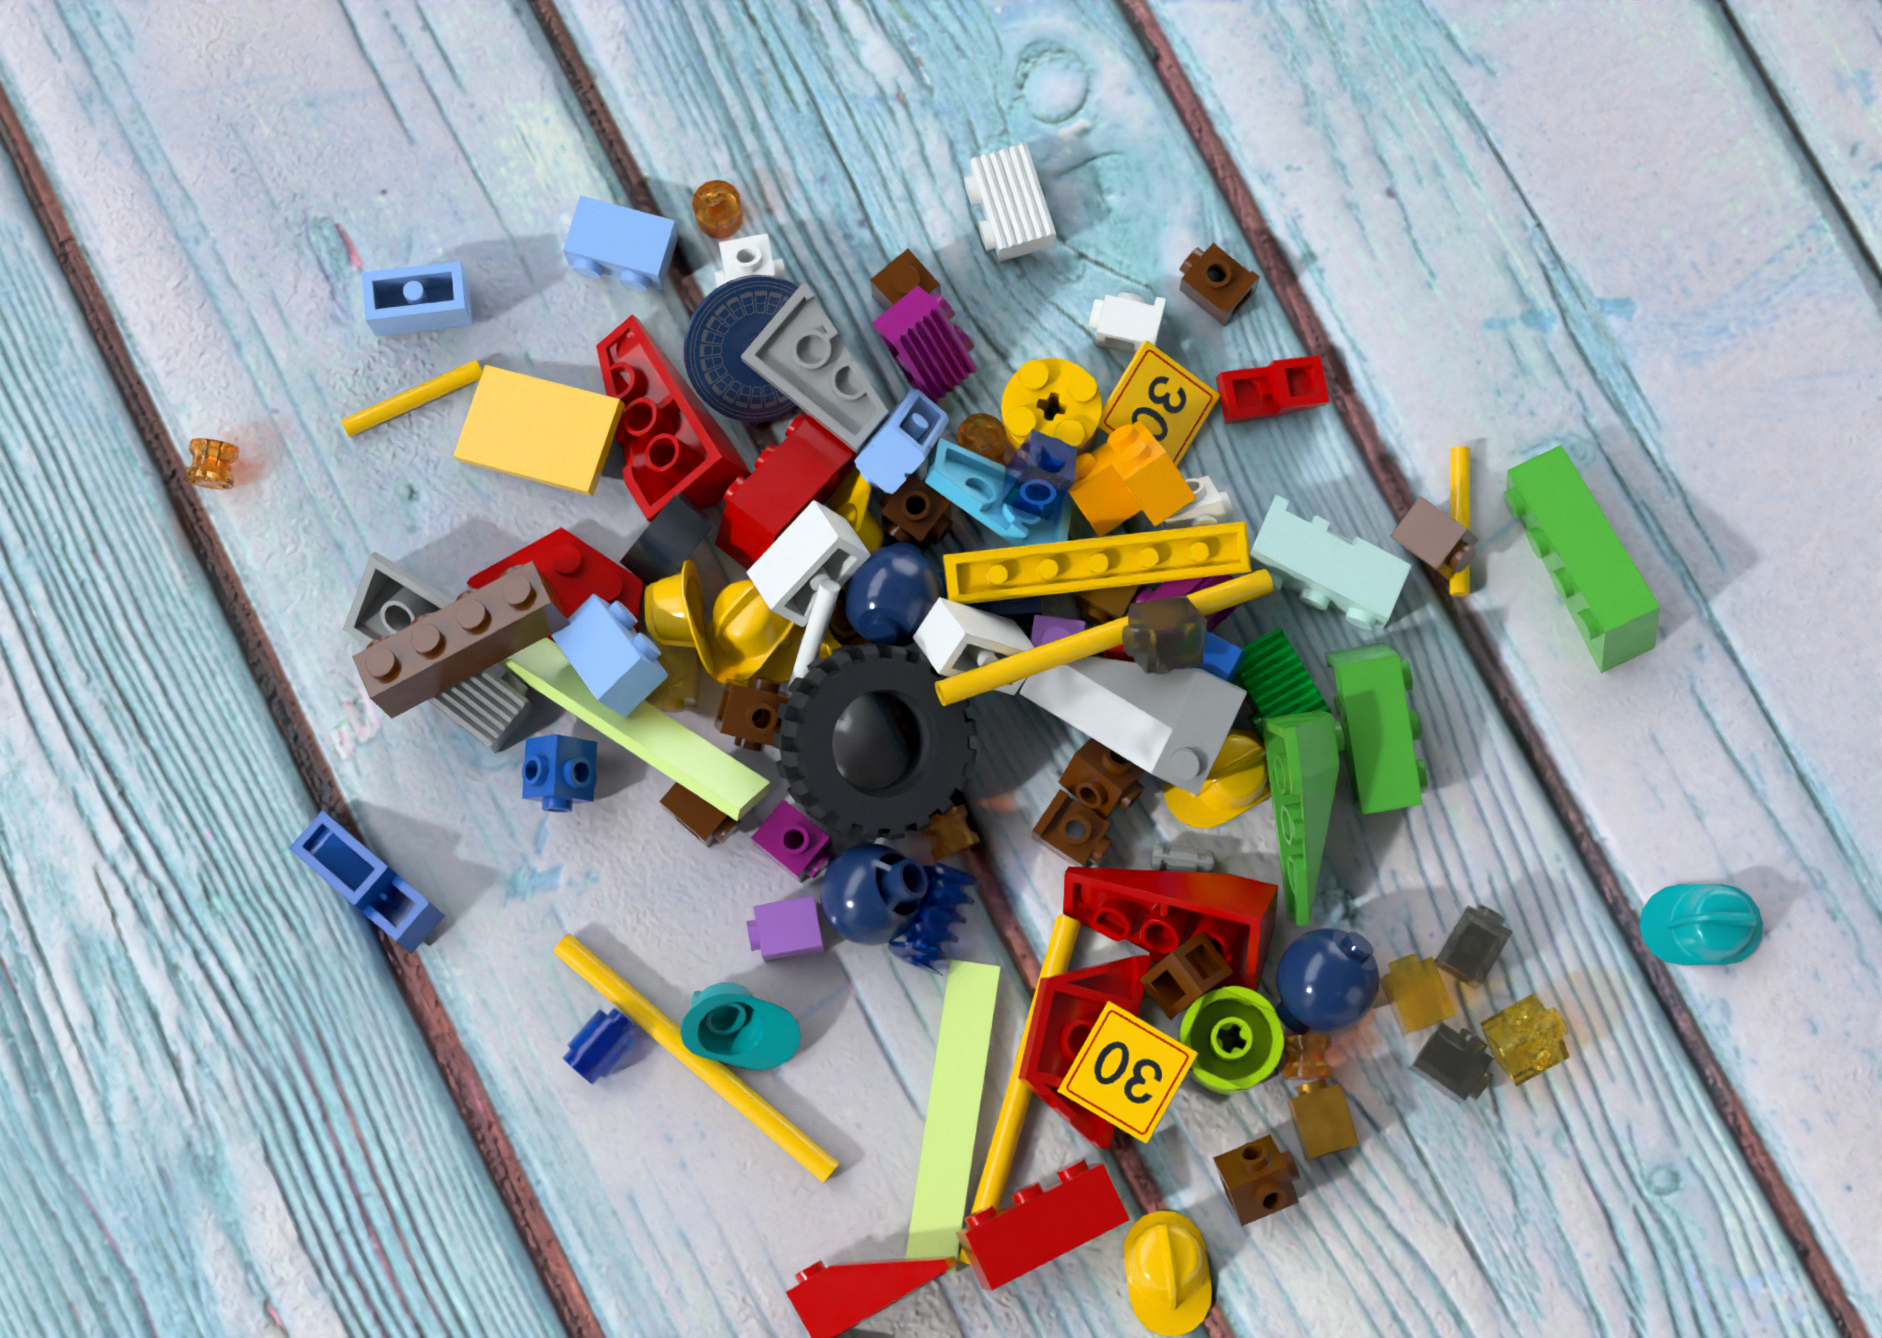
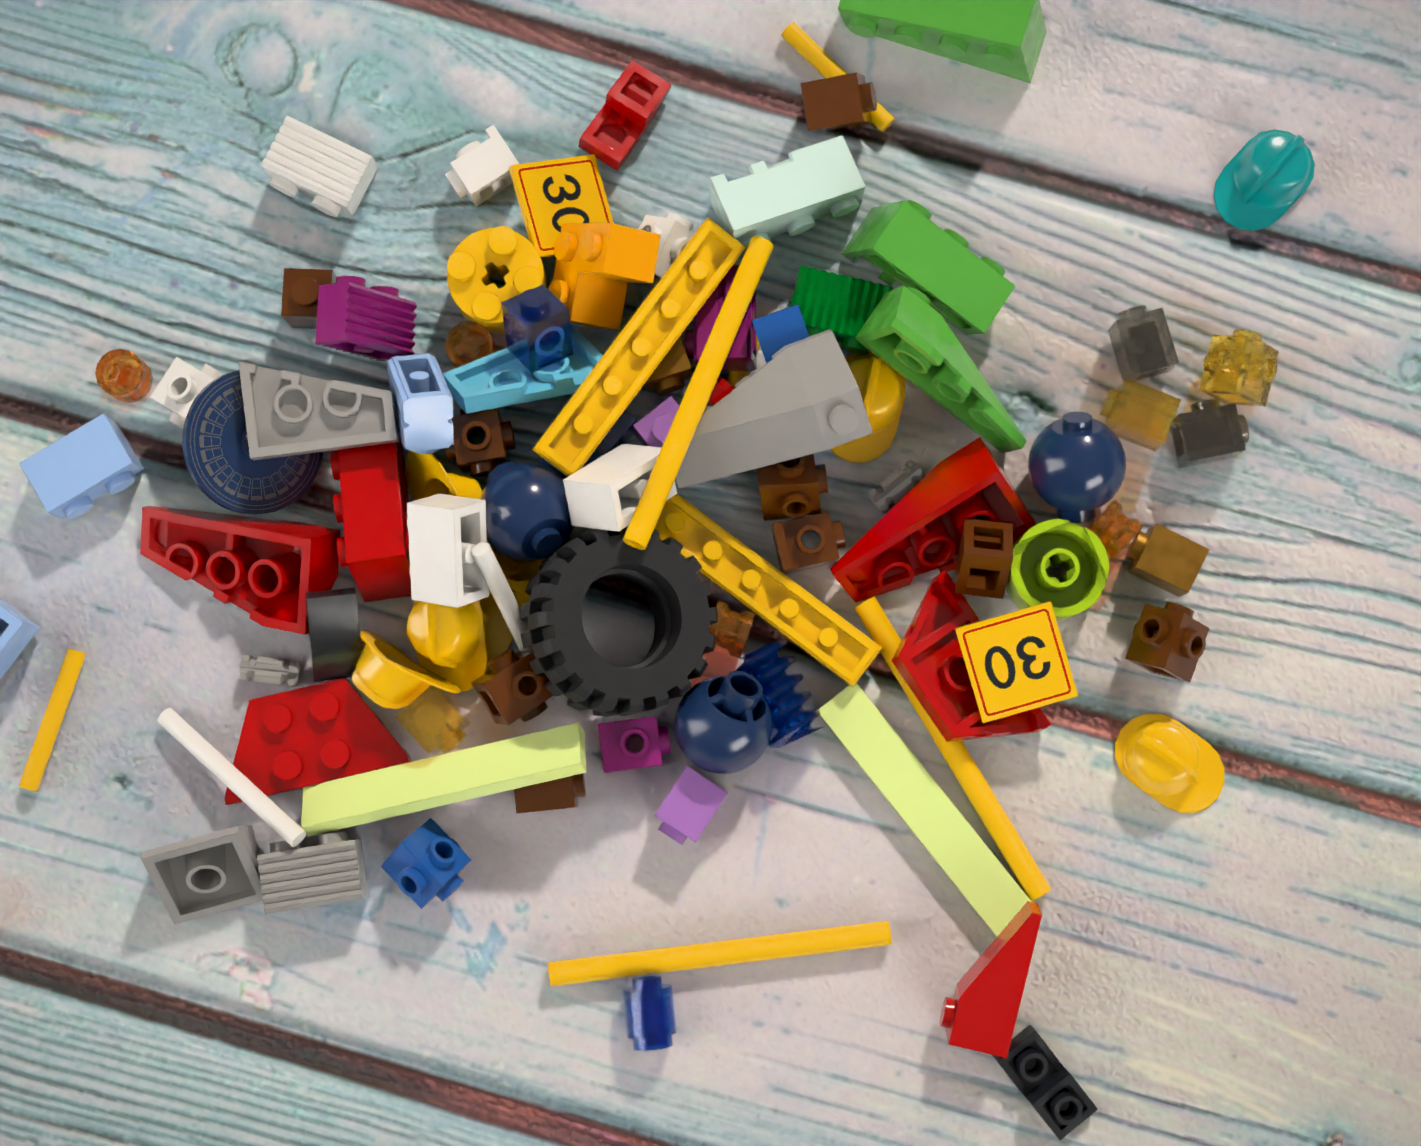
camera: 50 degrees left, 5 degrees up
(366, 882) = (375, 1075): blue slope -> none
(460, 639) = (265, 850): brick -> none
(491, 527) = (231, 777): none -> white bar
(539, 430) = (163, 651): yellow tile -> none
(597, 522) = (270, 670): none -> light grey piece
(610, 654) = (379, 751): light blue brick -> none
(738, 1028) = (728, 905): teal piece -> none
(1005, 832) = (768, 592): none -> yellow tile
(1041, 1223) = (1063, 820): red brick -> none
(1165, 634) = (740, 346): clear smoke brick -> none
(1221, 298) = (524, 92): reddish brown brick -> none

